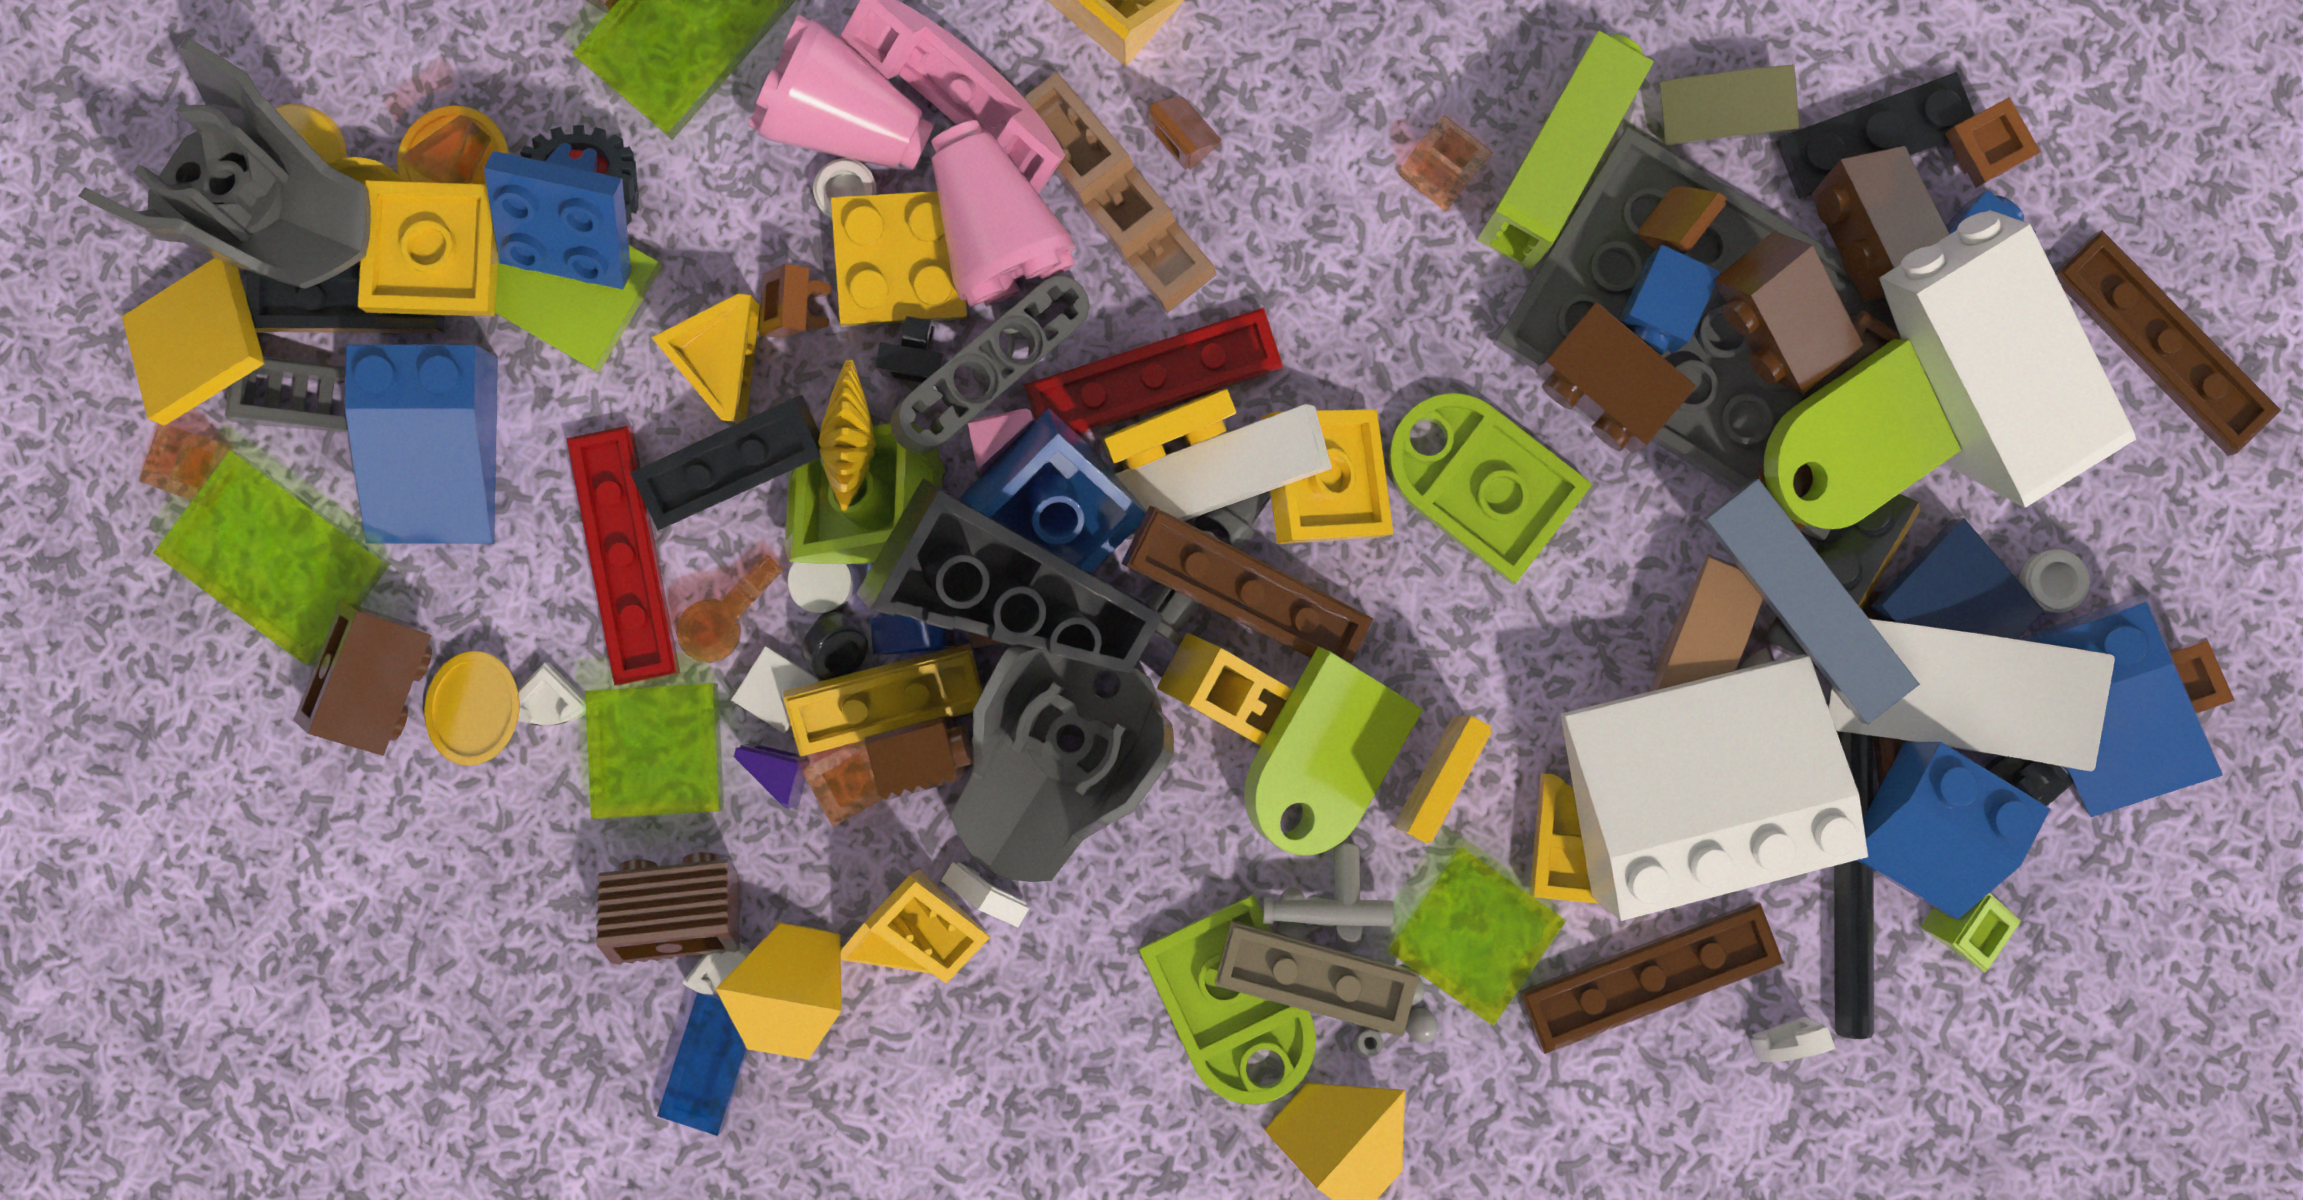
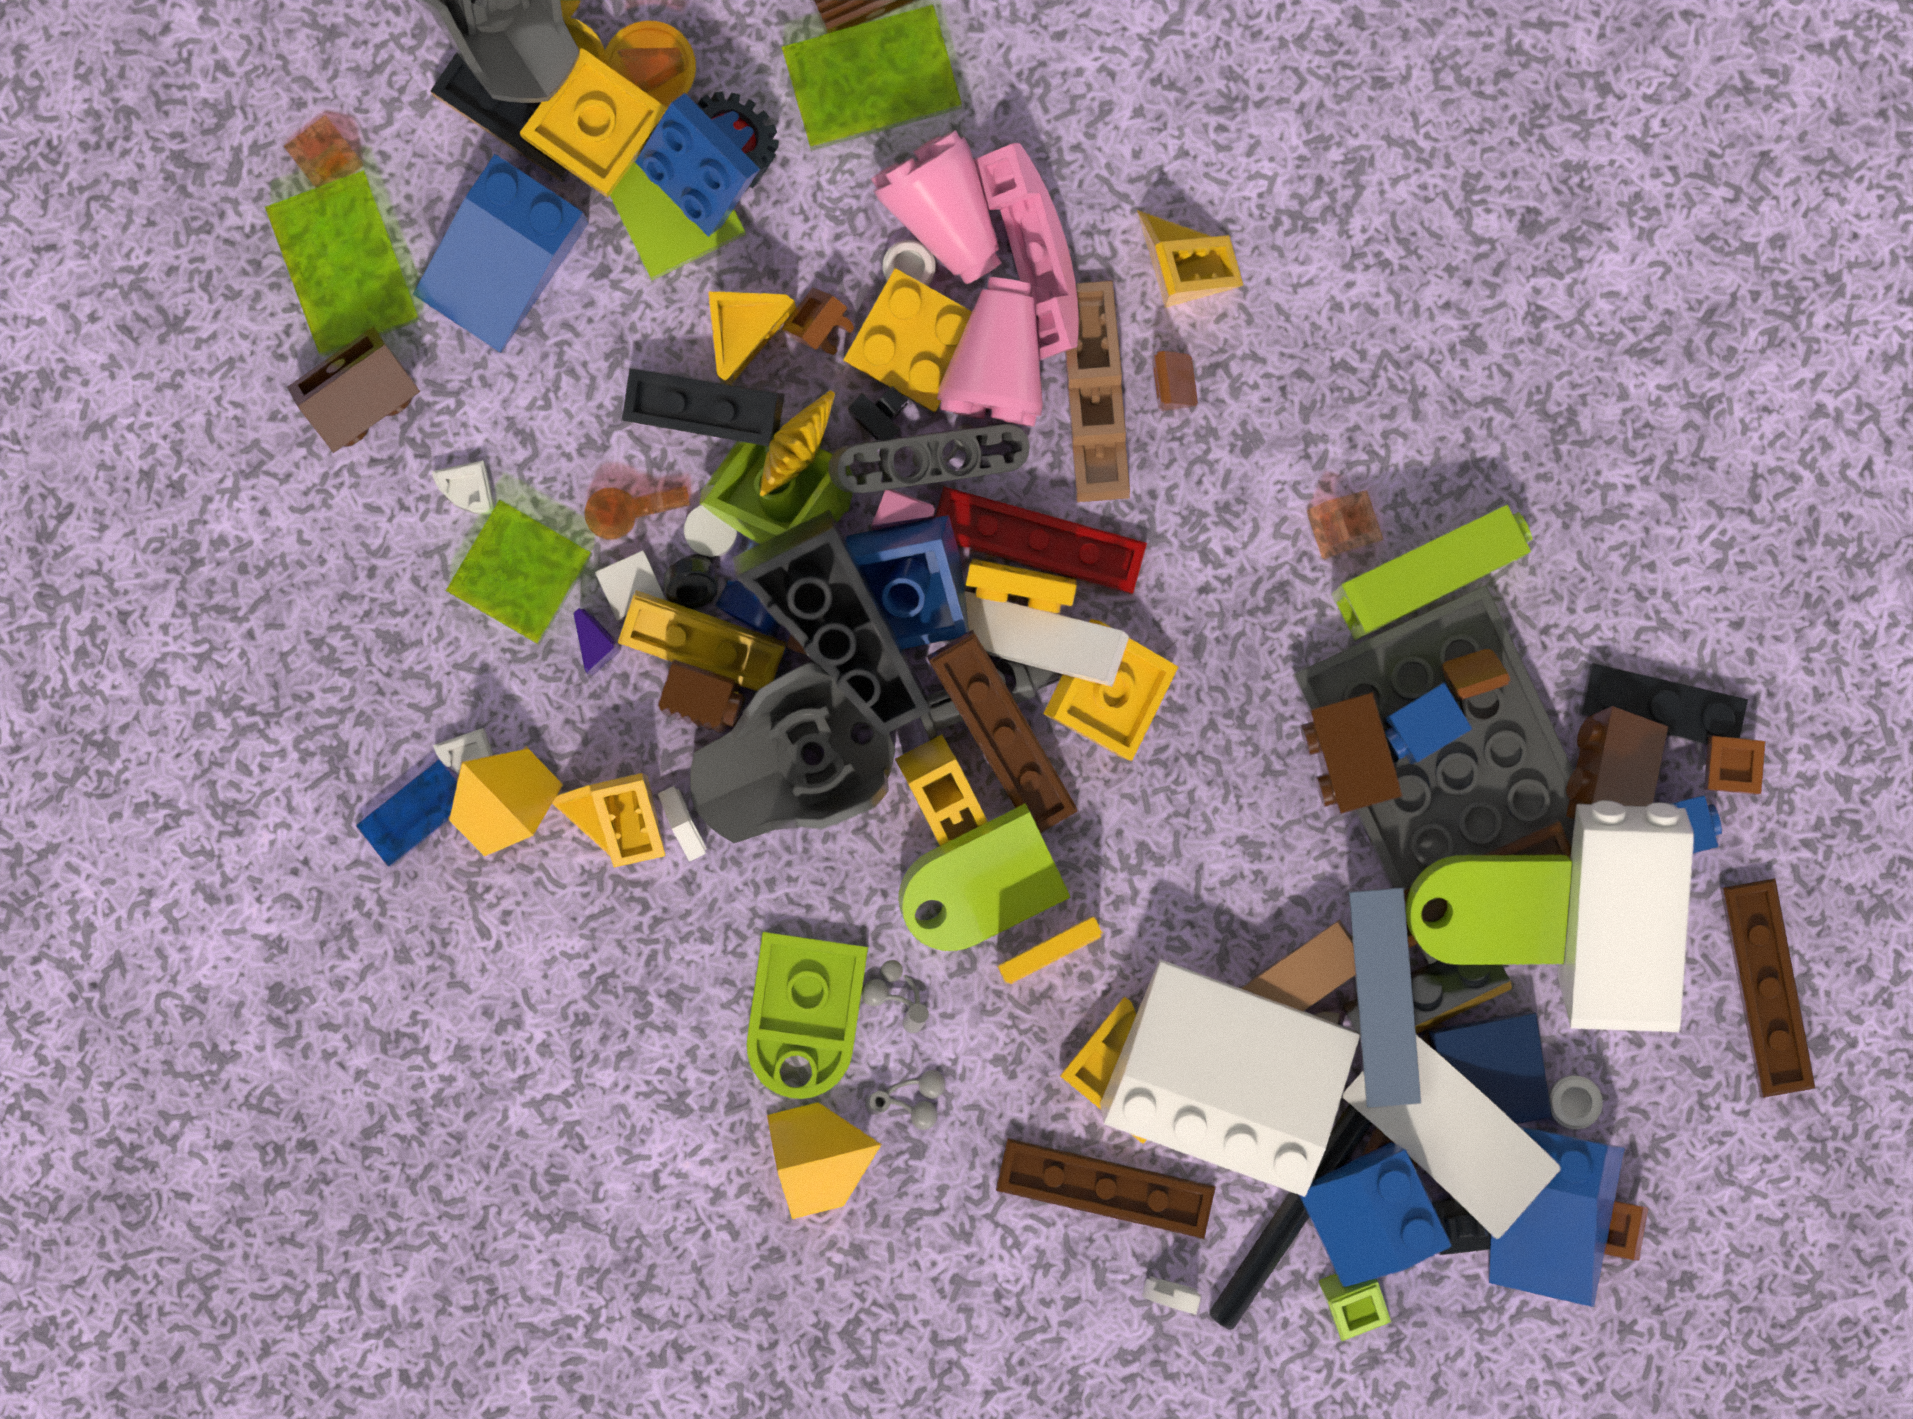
camera: 30 degrees right, 0 degrees up
(192, 340) = (388, 76): yellow tile -> none
(241, 396) = (388, 147): dark grey slope -> none
(471, 708) = (412, 459): yellow piece -> none
(623, 557) = (585, 422): red tile -> none
(668, 909) = (459, 688): reddish brown brick -> none
(843, 783) = (637, 682): clear orange slope -> none
(1317, 978) = (872, 1031): dark tan tile -> none
(1344, 908) = (923, 997): light grey piece -> none
(1476, 935) = (1003, 1078): clear neon green plate -> none
(1488, 484) = (1221, 770): lime tile -> none
(1730, 104) = (1570, 617): olive slope -> none
(1787, 312) = (1499, 787): reddish brown brick -> none

